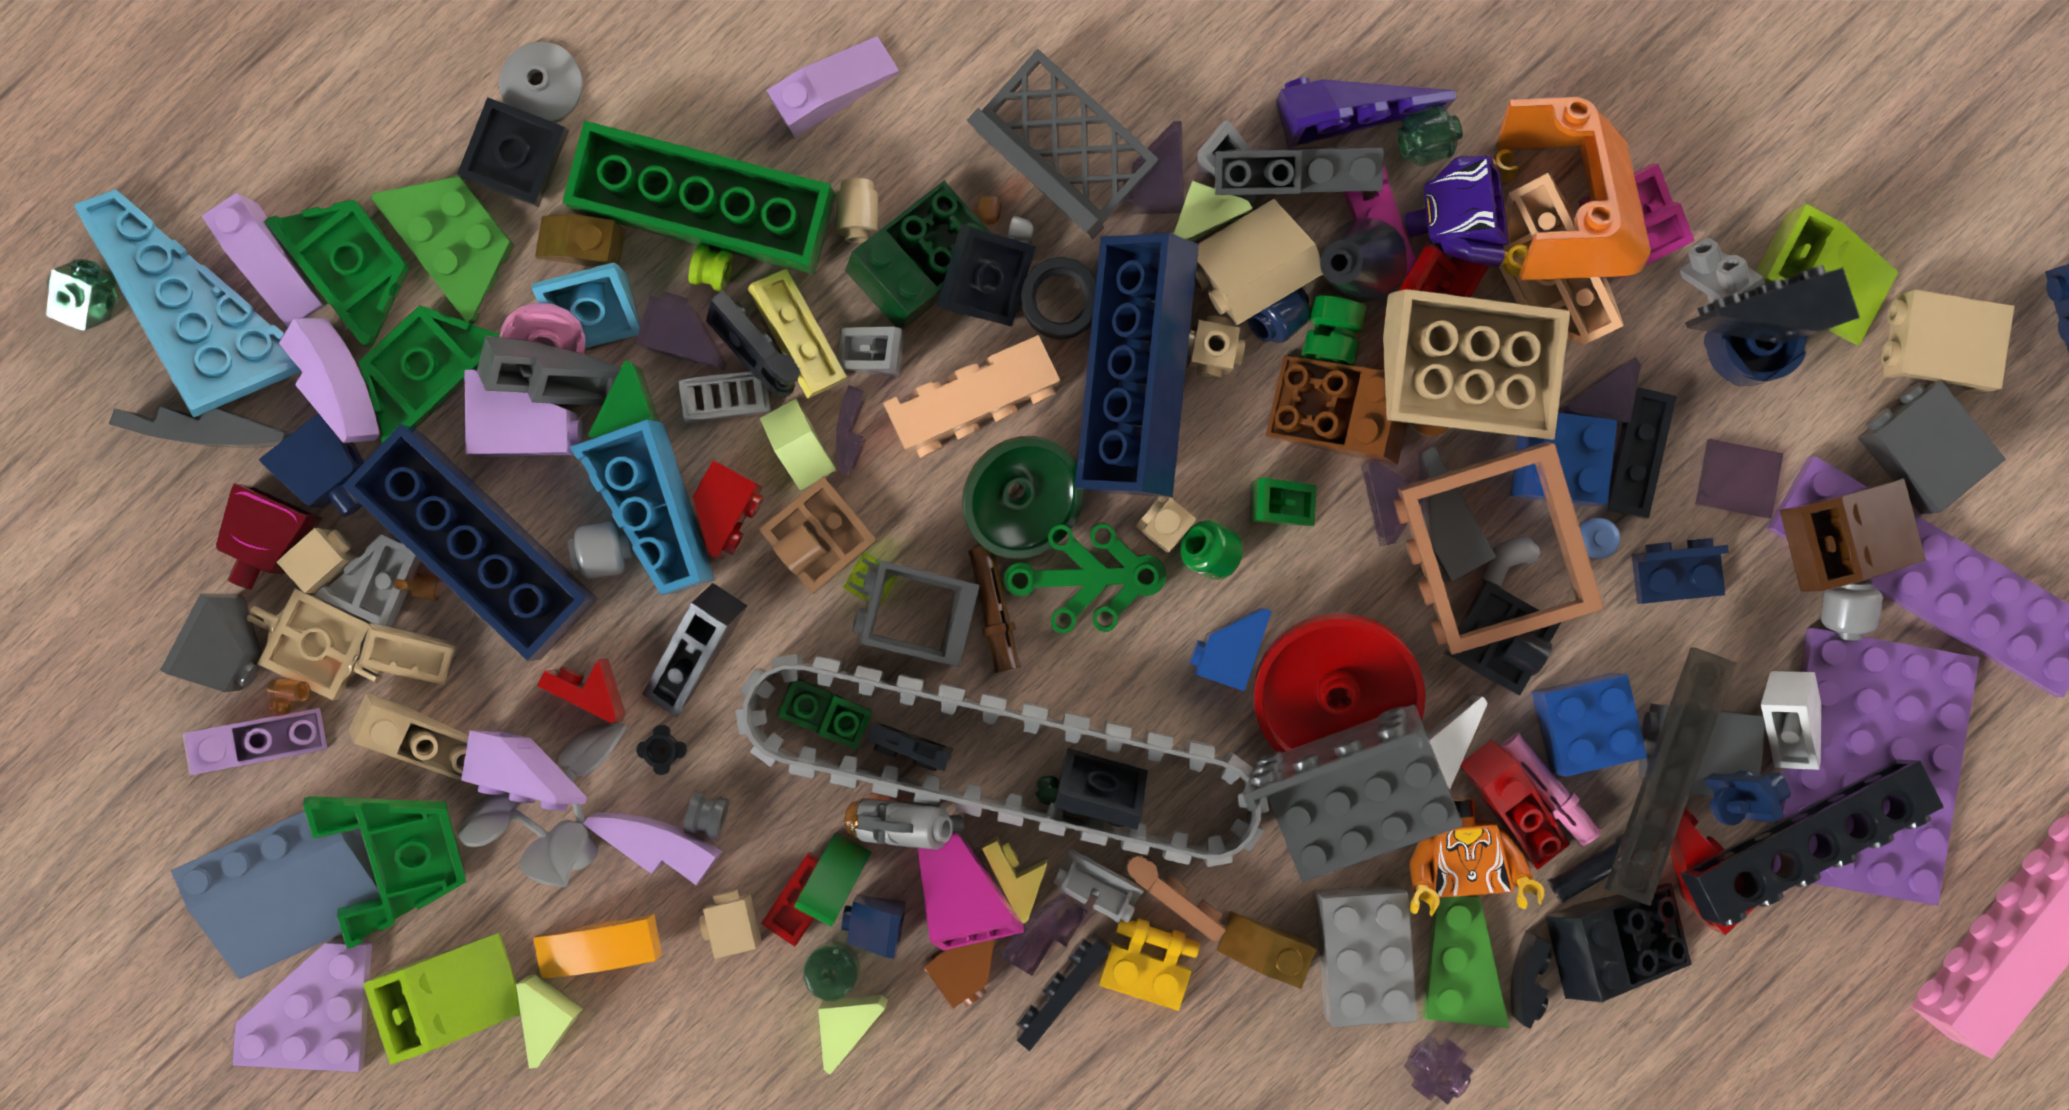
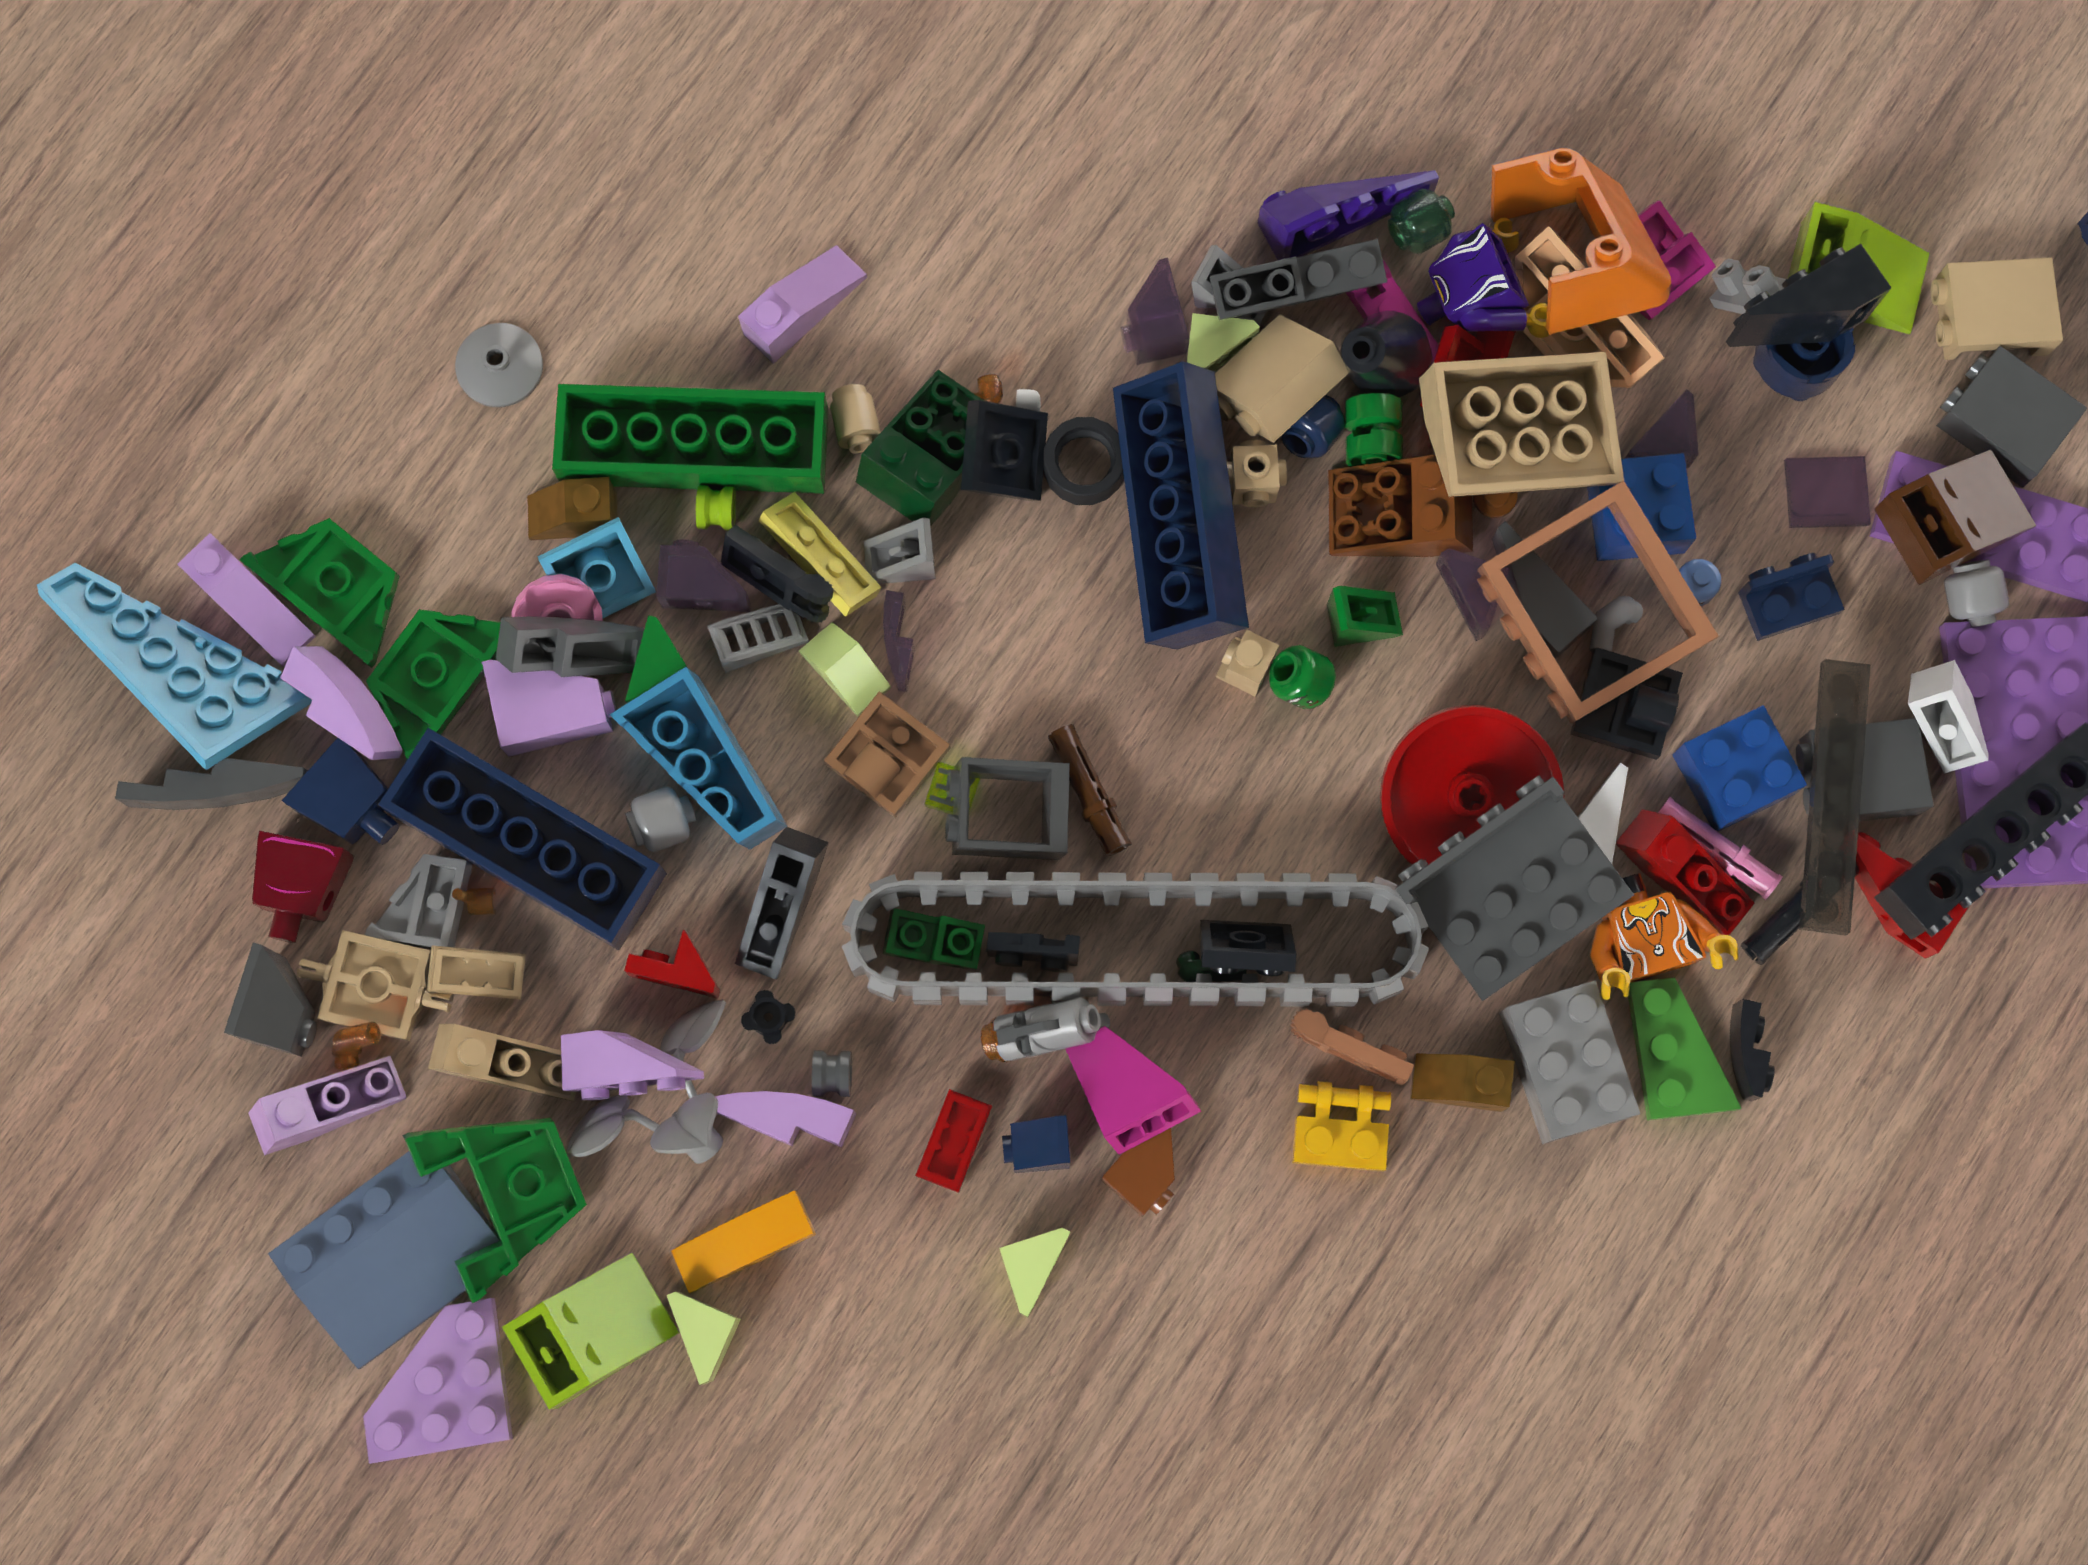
camera: 15 degrees left, 10 degrees down
(81, 294) = (60, 673): clear green brick -> none
(317, 559) = (361, 894): tan brick -> none
(450, 238) = (435, 537): bright green wing -> none
(513, 152) = (485, 437): black plate -> none
(722, 506) = (781, 741): red slope -> none
(730, 924) = (882, 1183): tan brick -> none
(832, 879) = (983, 1107): green slope -> none
(836, 957) = (1003, 1225): clear green head -> none
(973, 397) = (1017, 578): light nougat wedge -> none
(1019, 886) = (1188, 1071): light yellow slope -> none
(1020, 521) = (1116, 667): dark green dish -> none
(1041, 172) = (1032, 338): dark grey fence -> none
(1052, 922) = (1226, 1106): slope -> none
(1060, 990) = (1253, 1174): black plate -> none
(1092, 577) = (1184, 734): green plant -> none
(1115, 893) = (1259, 1048): light grey hinge -> none
(1231, 650) = (1347, 777): blue slope -> none
(1428, 1059) = (1662, 1169): clear purple brick -> none
(1617, 944) = (1831, 991): black slope -> none
(1640, 454) = (1718, 487): black plate -> none
(1747, 796) = (1918, 793): dark blue hips -> none

